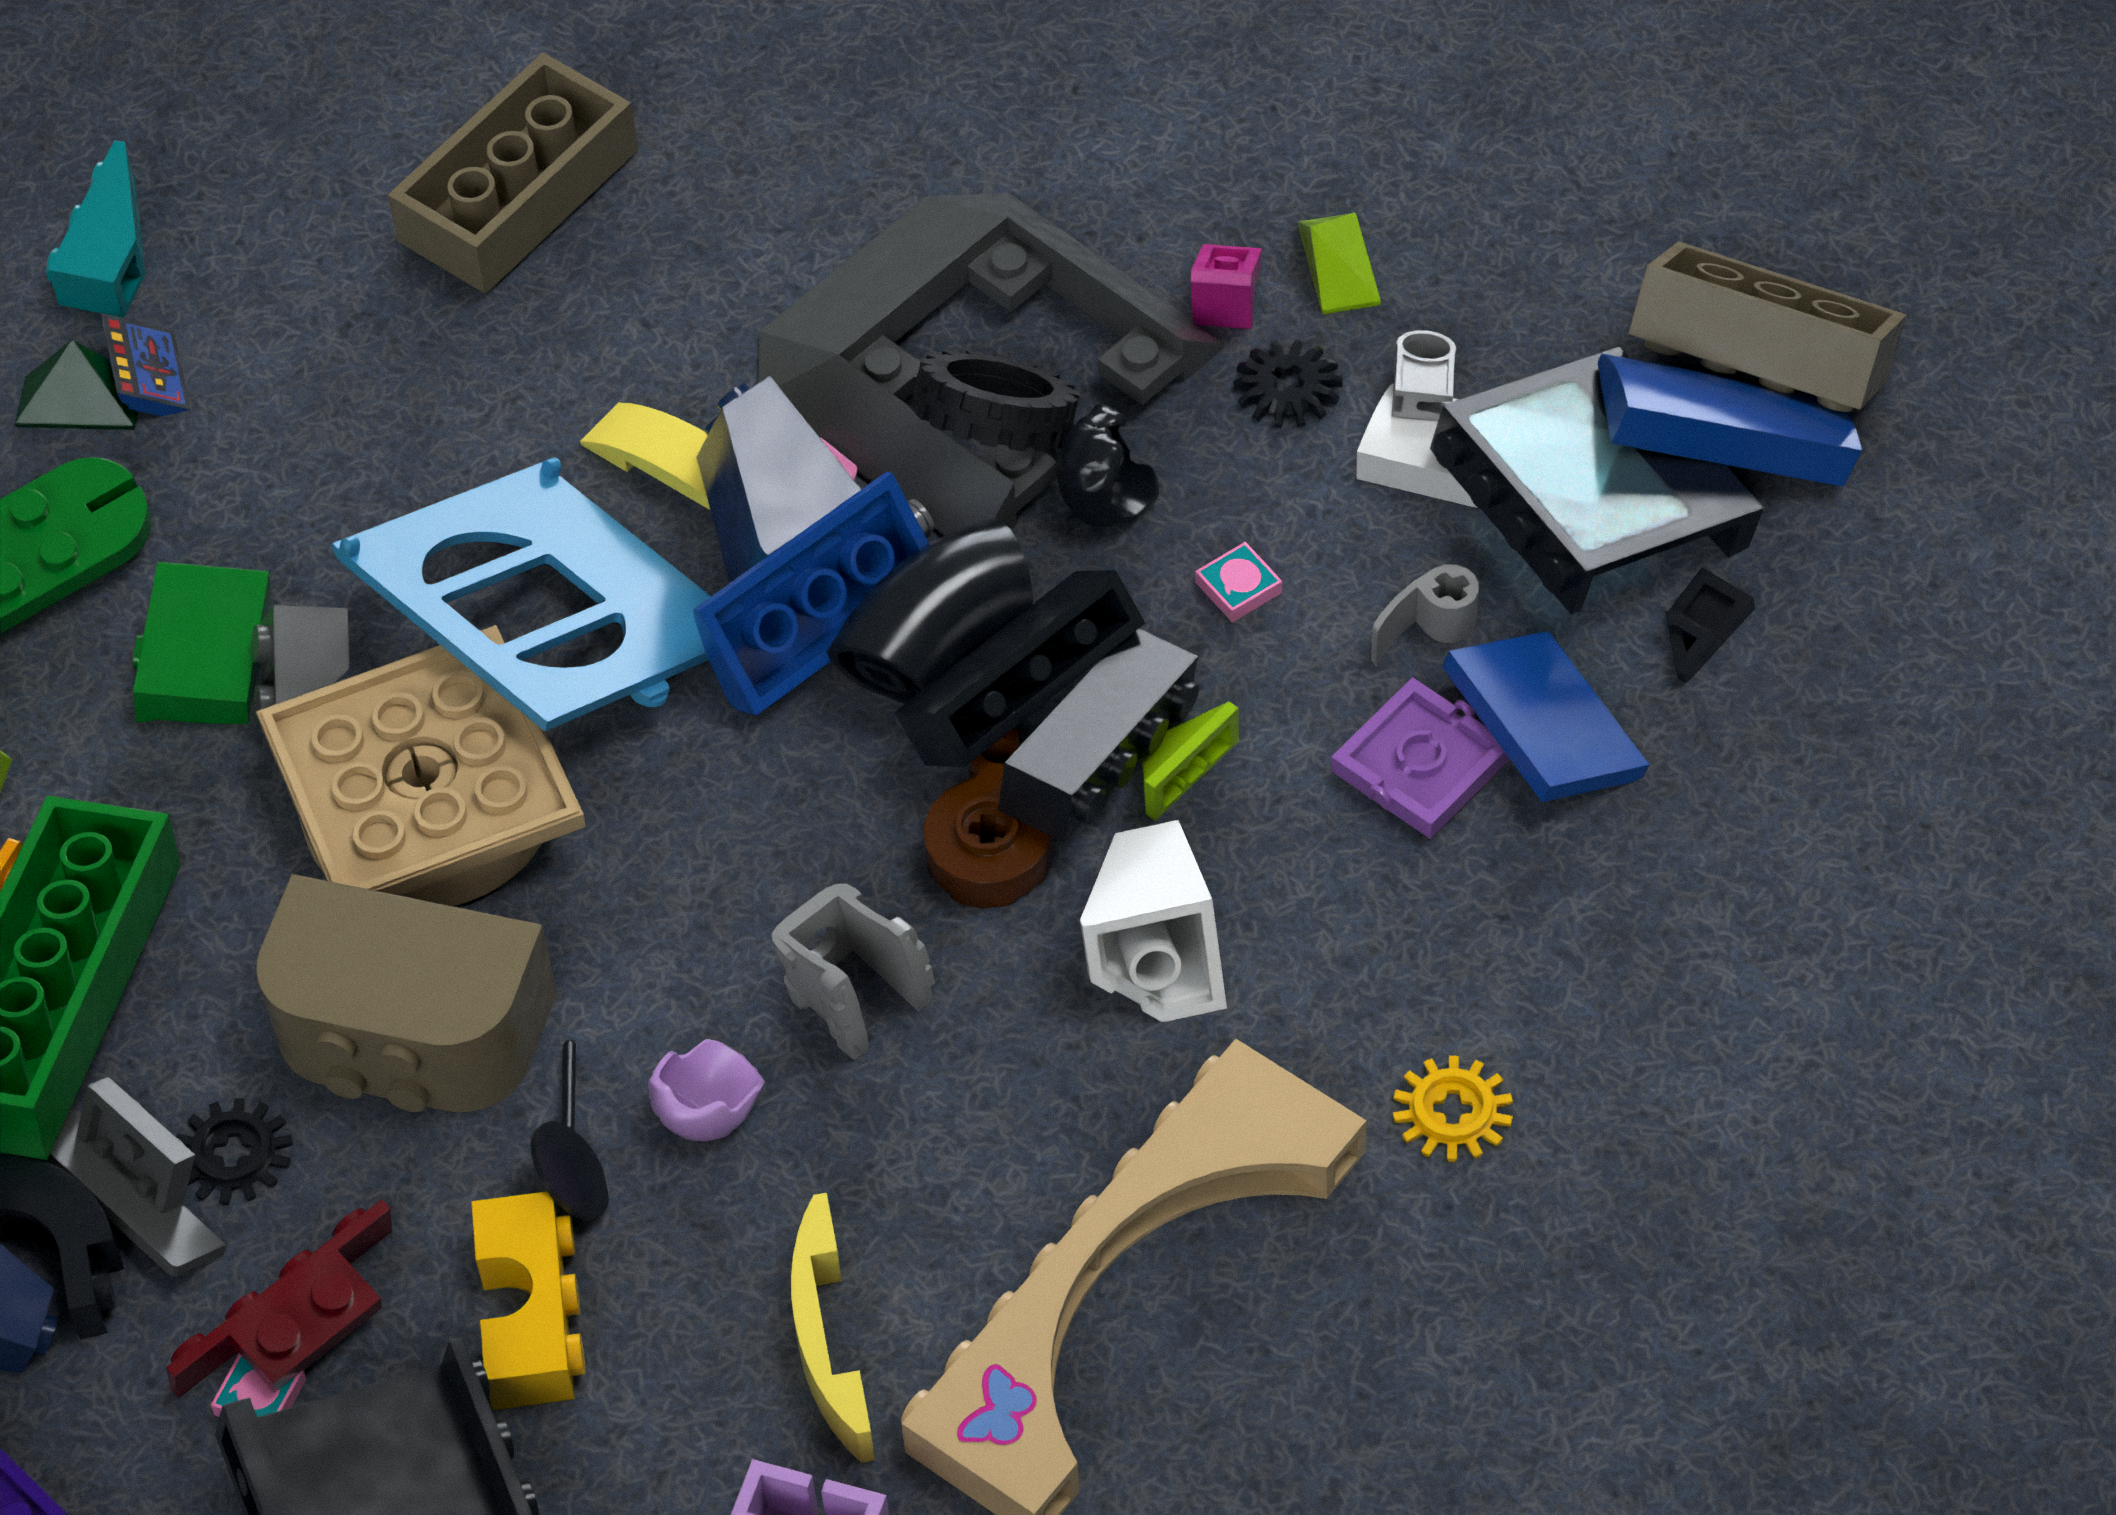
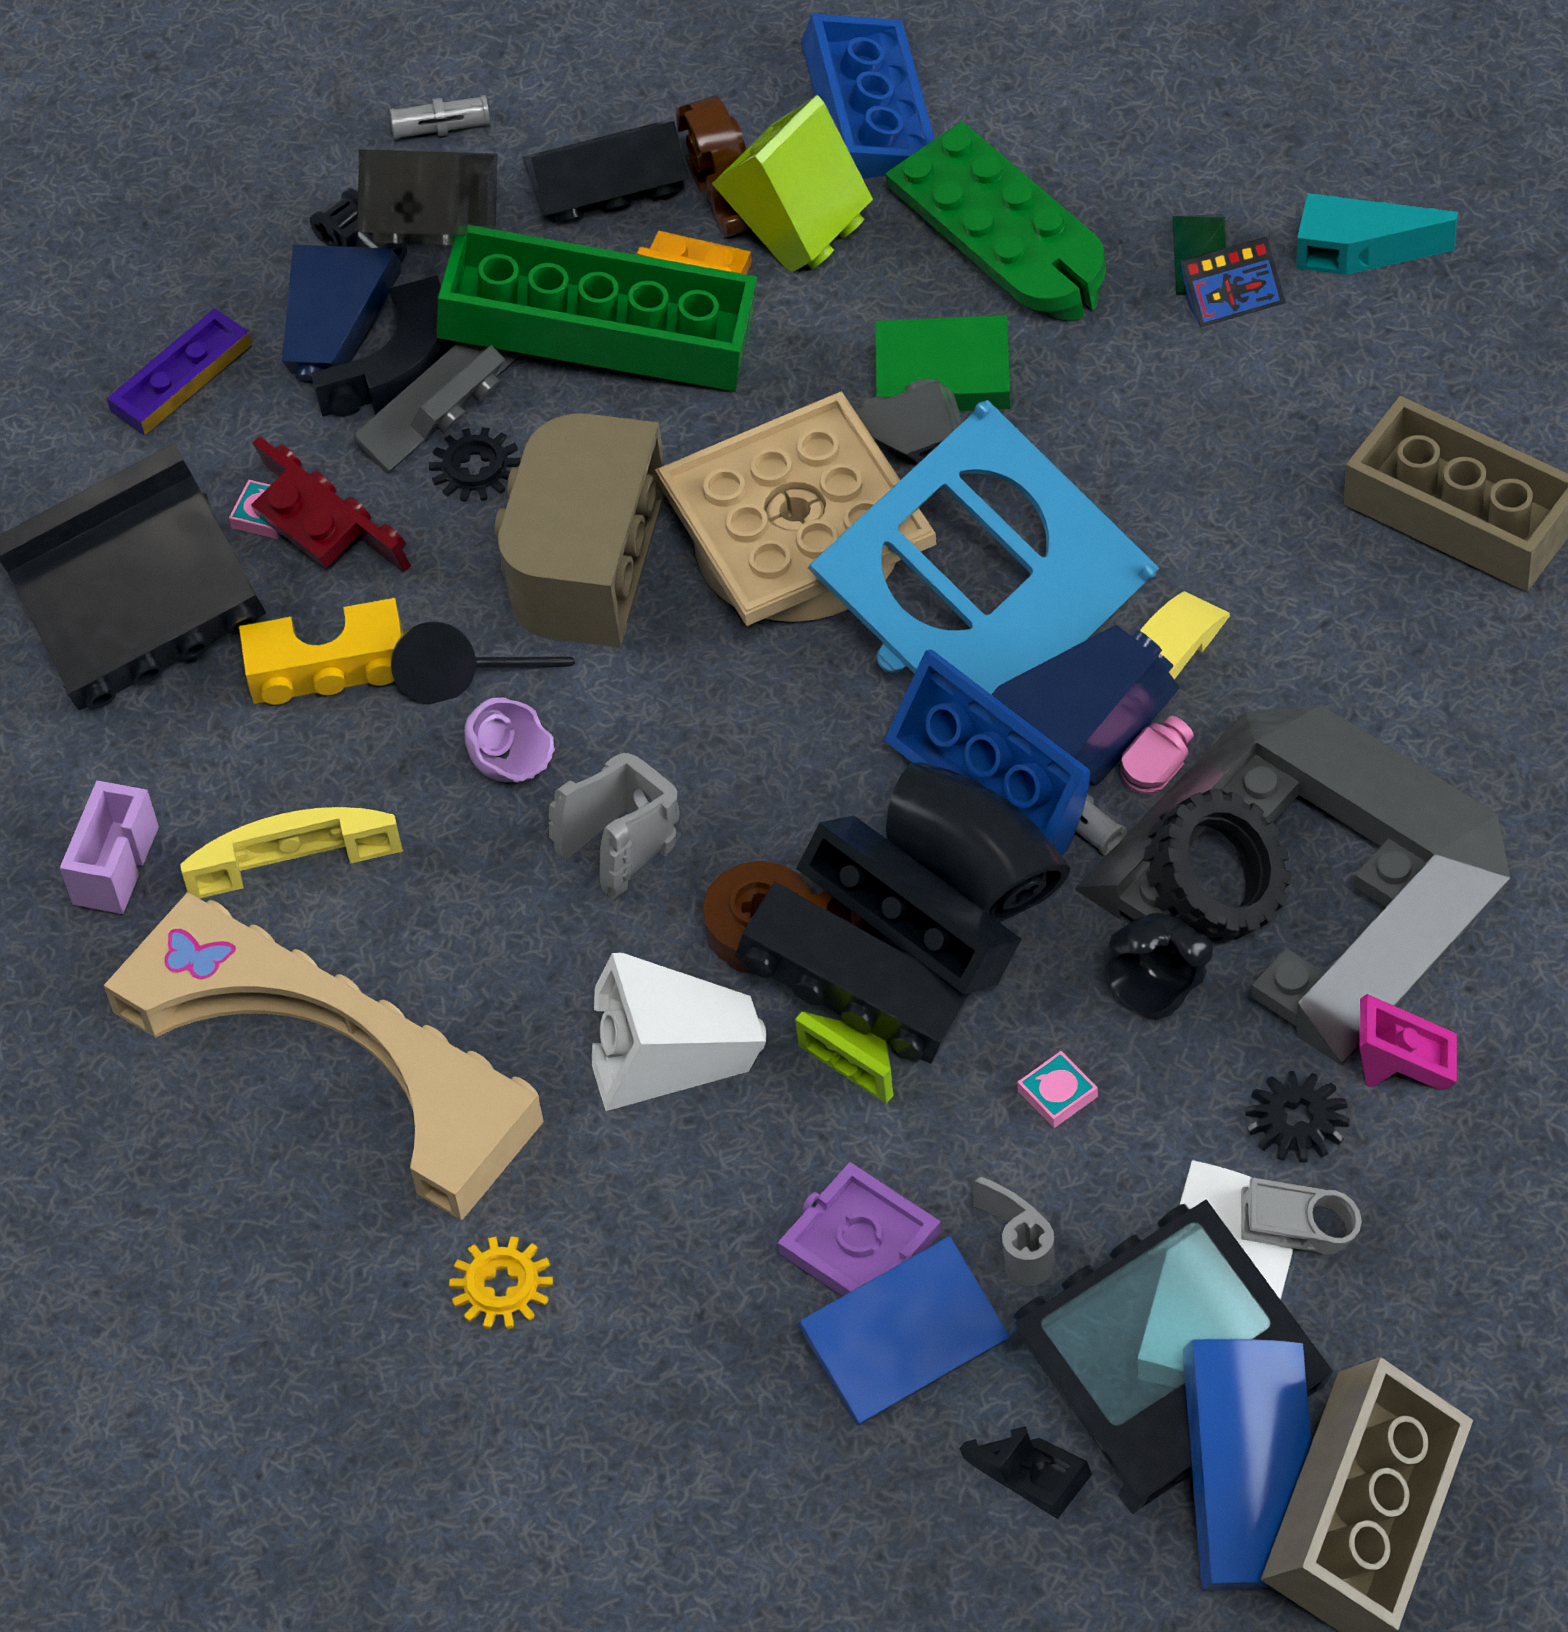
camera: 90 degrees right, 0 degrees up
(1339, 263) = (1453, 1145): lime slope -> none

